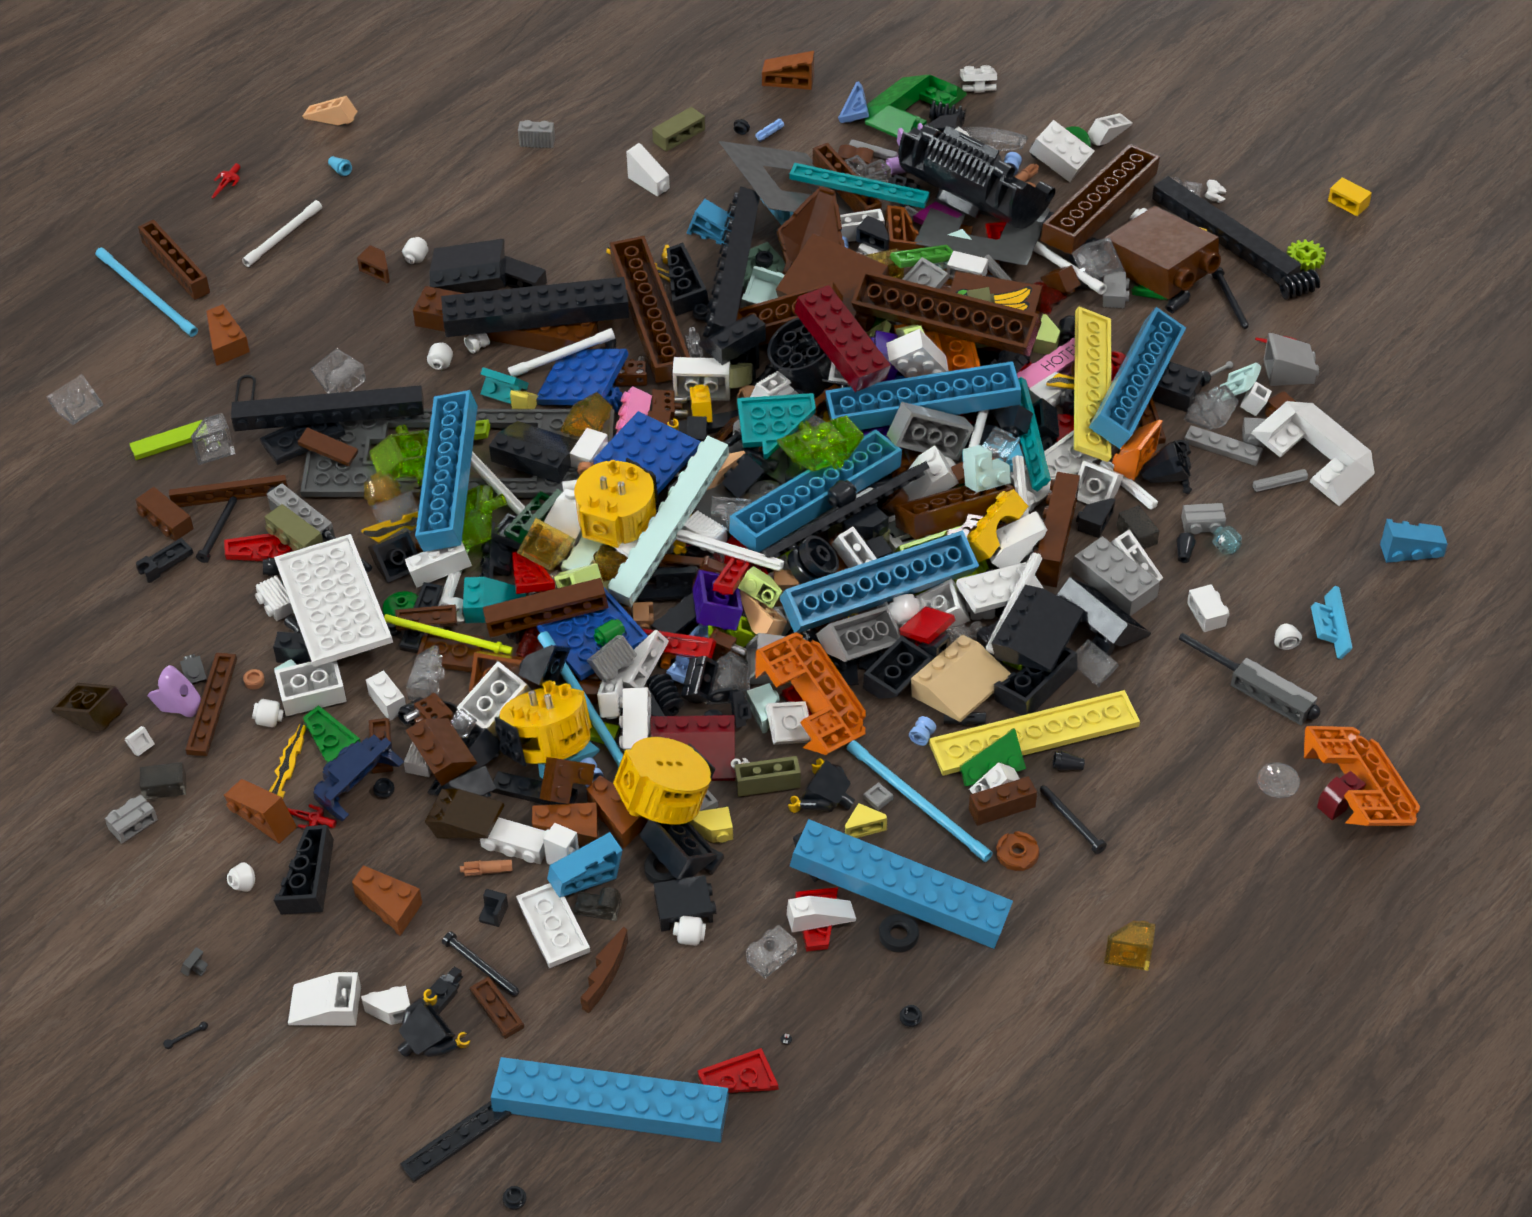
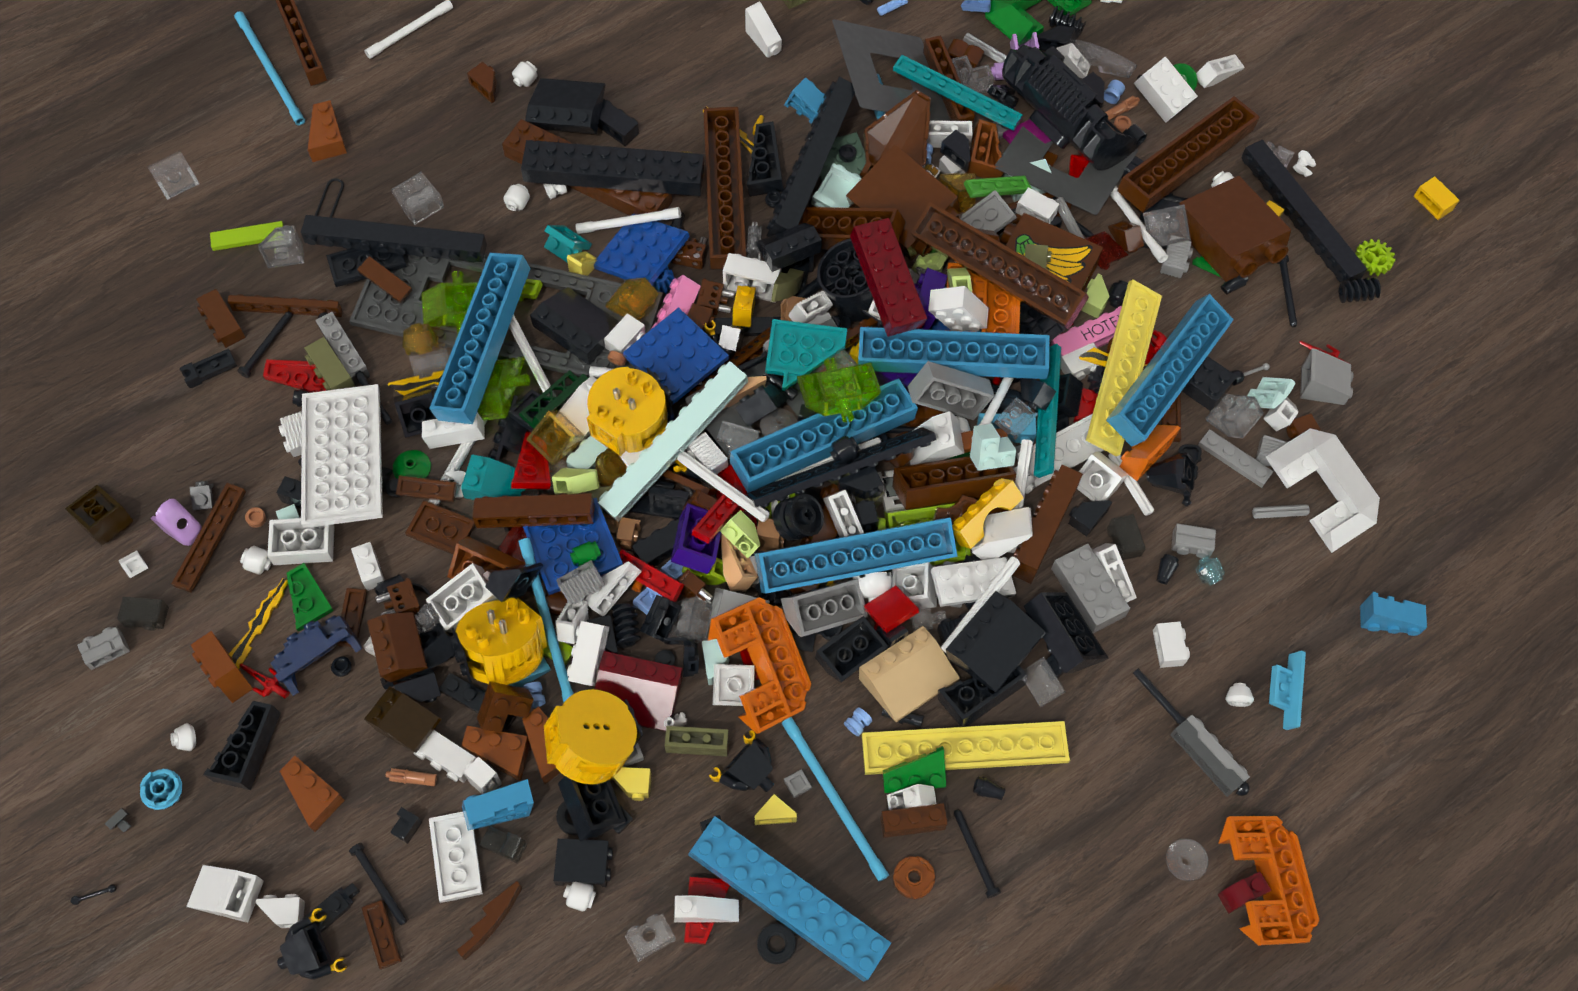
camera: 10 degrees right, 15 degrees up
(232, 924) = (161, 789): none -> medium azure cone
(425, 674) = (409, 554): clear slope -> none
(428, 597) = (433, 470): black tile -> none
(496, 647) = (483, 536): neon yellow bar -> none

